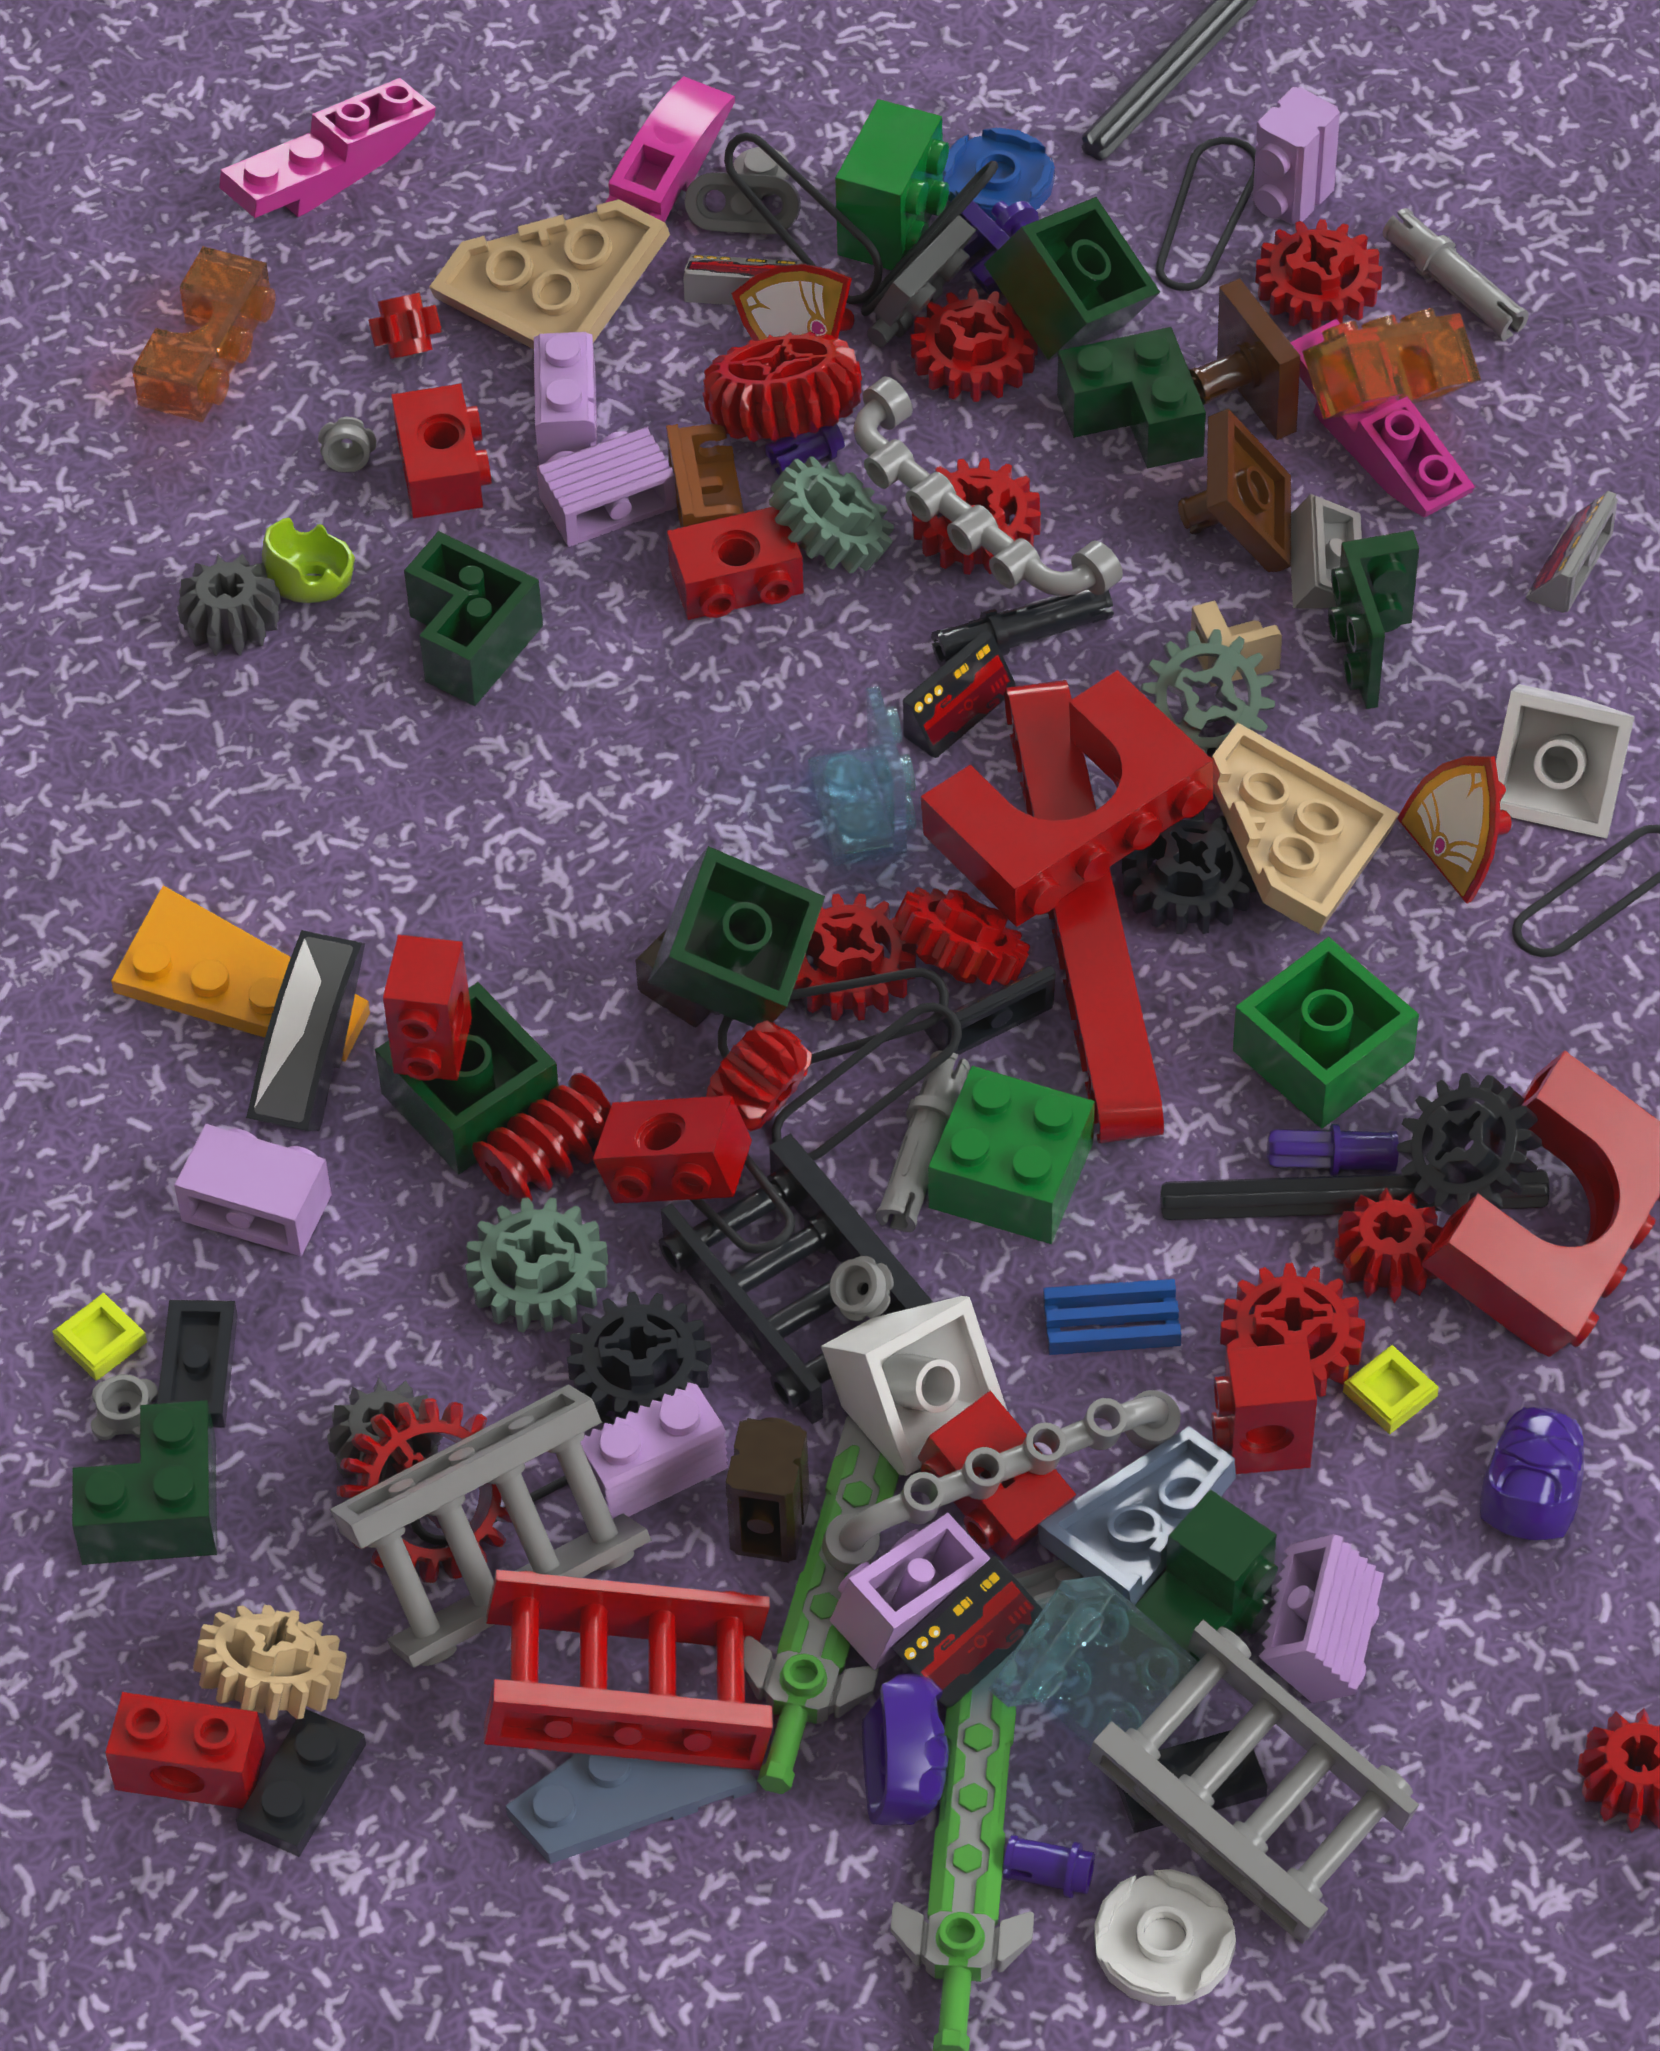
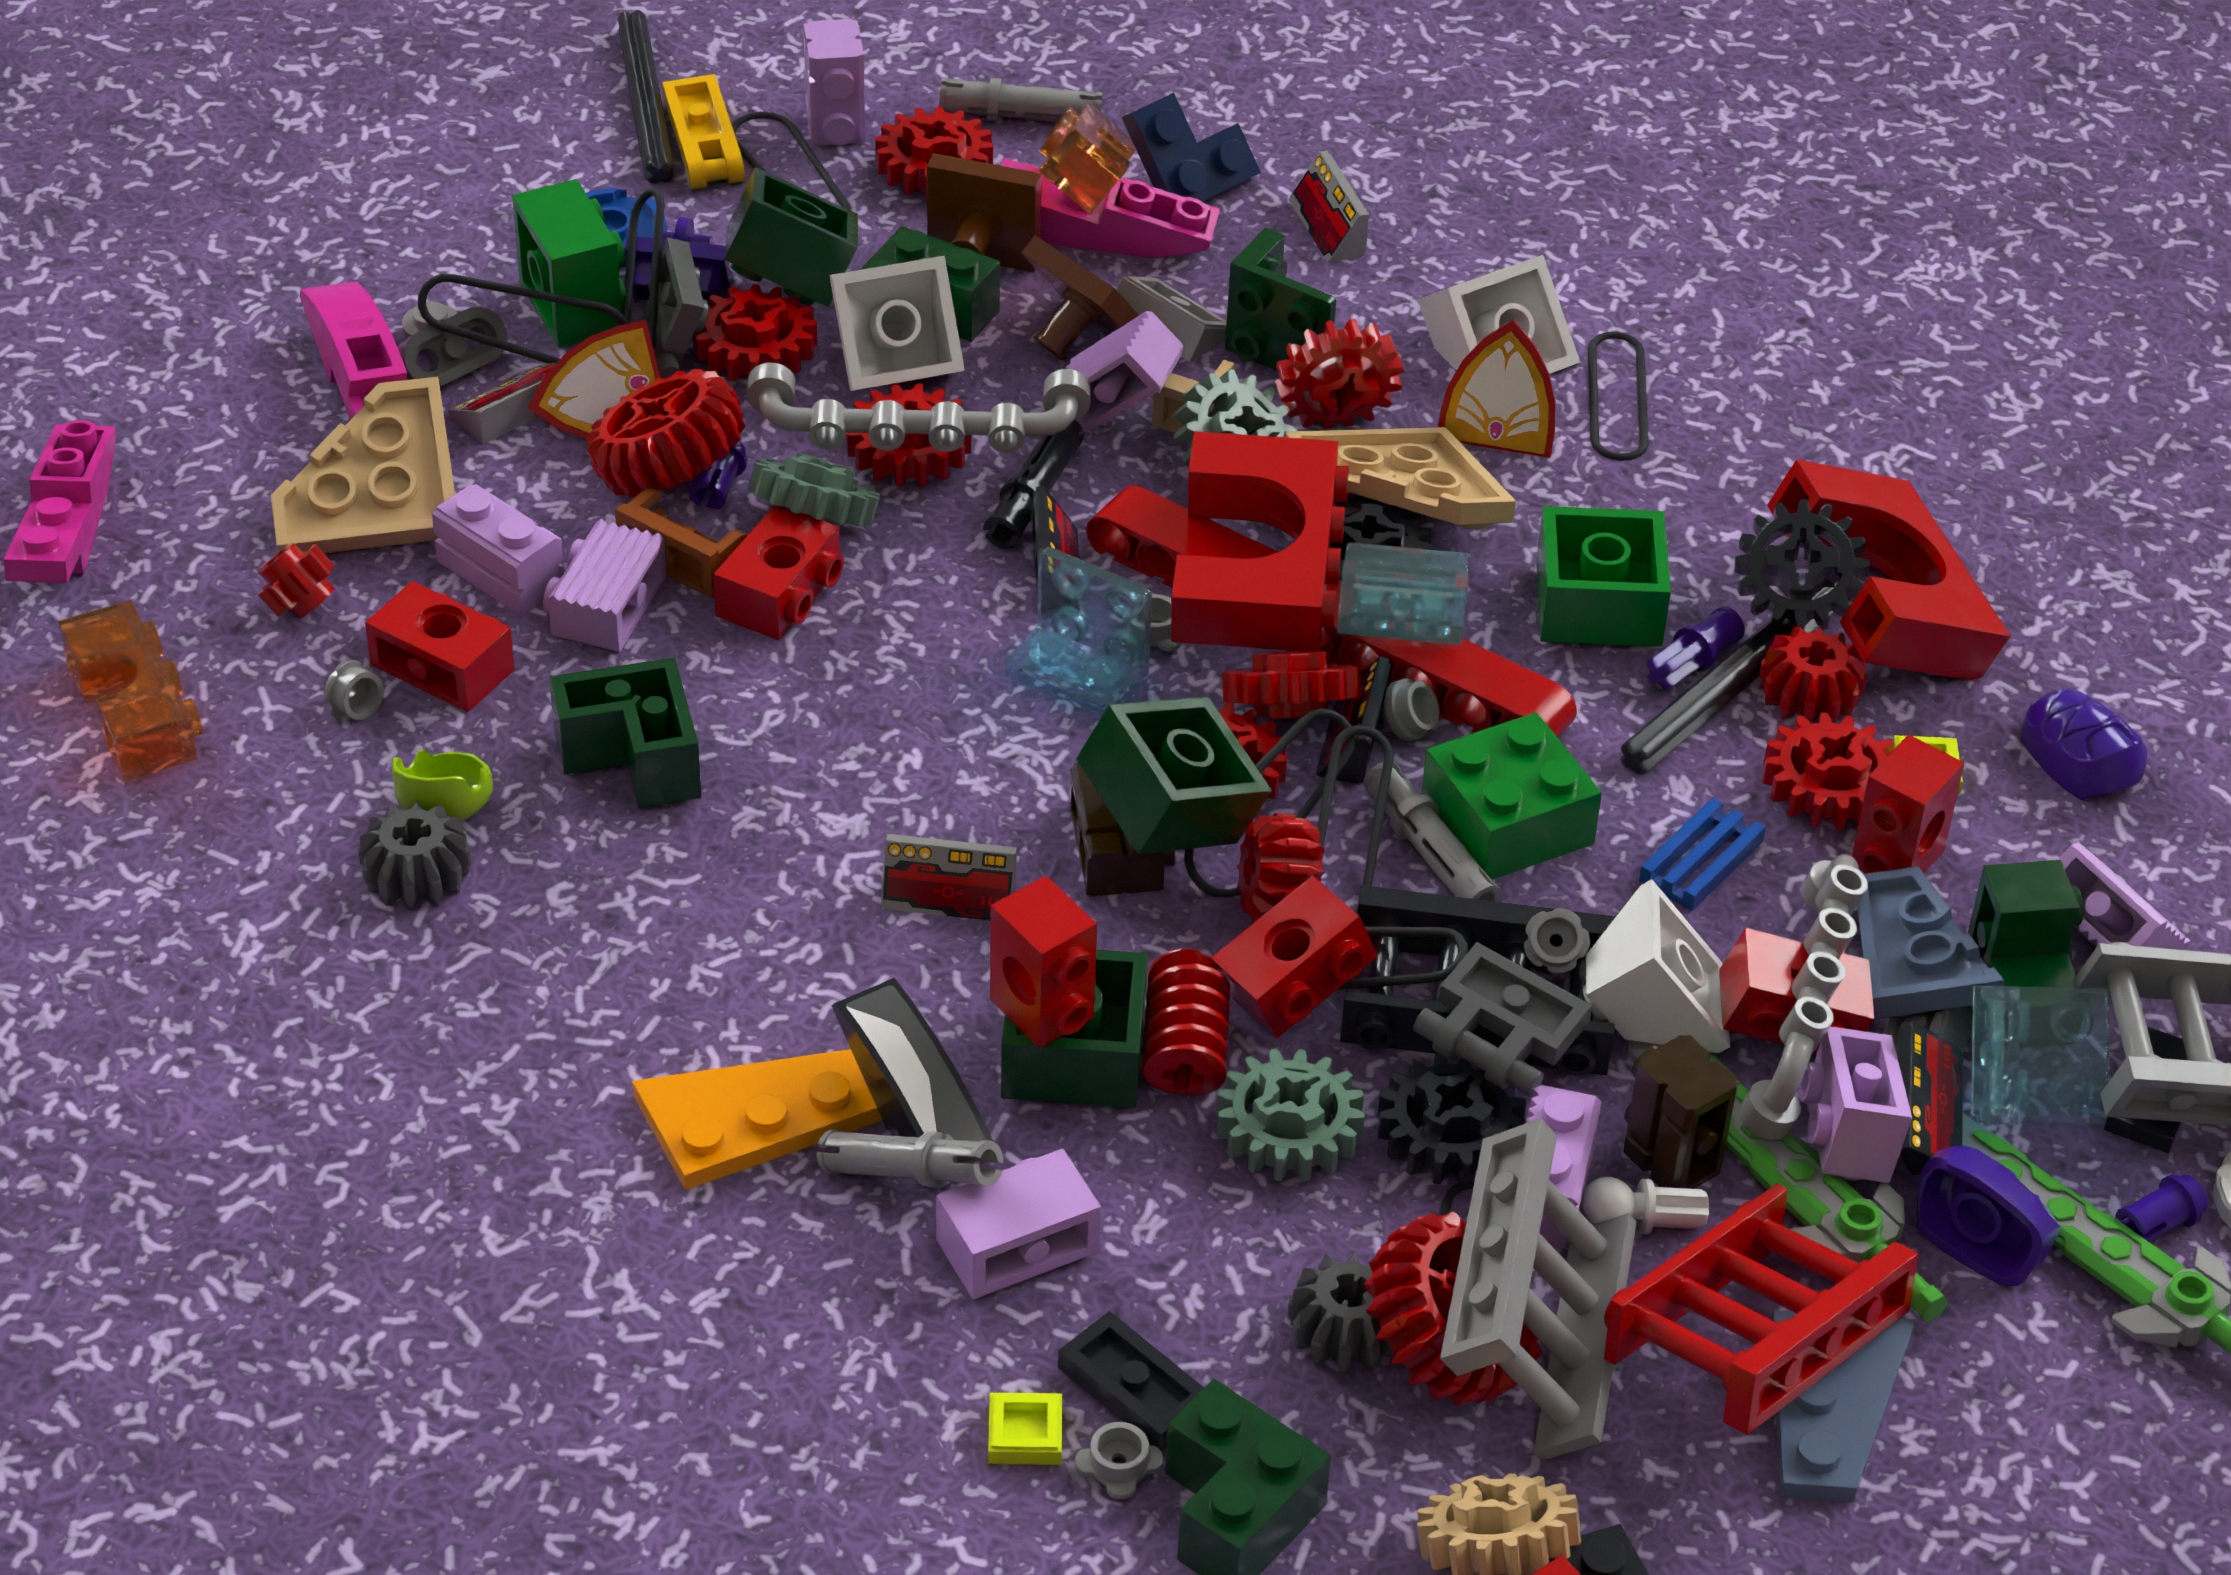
camera: 50 degrees left, 10 degrees down
(234, 1092) = (930, 1159): none -> light grey pin
(546, 901) = (946, 876): none -> slope
(665, 1518) = (1649, 1205): none -> white axle
(750, 1313) = (1511, 1003): none -> dark grey plate
(1042, 1026) = (1410, 709): none -> light grey plate
(1049, 415) = (897, 323): none -> white slope
(1123, 924) = (1403, 593): none -> clear light blue bracket
(1168, 131) = (703, 131): none -> yellow plate
(1178, 576) = (1126, 368): none -> lavender brick
(1343, 705) = (1334, 377): none -> red gear
(1496, 434) = (1178, 161): none -> dark blue plate

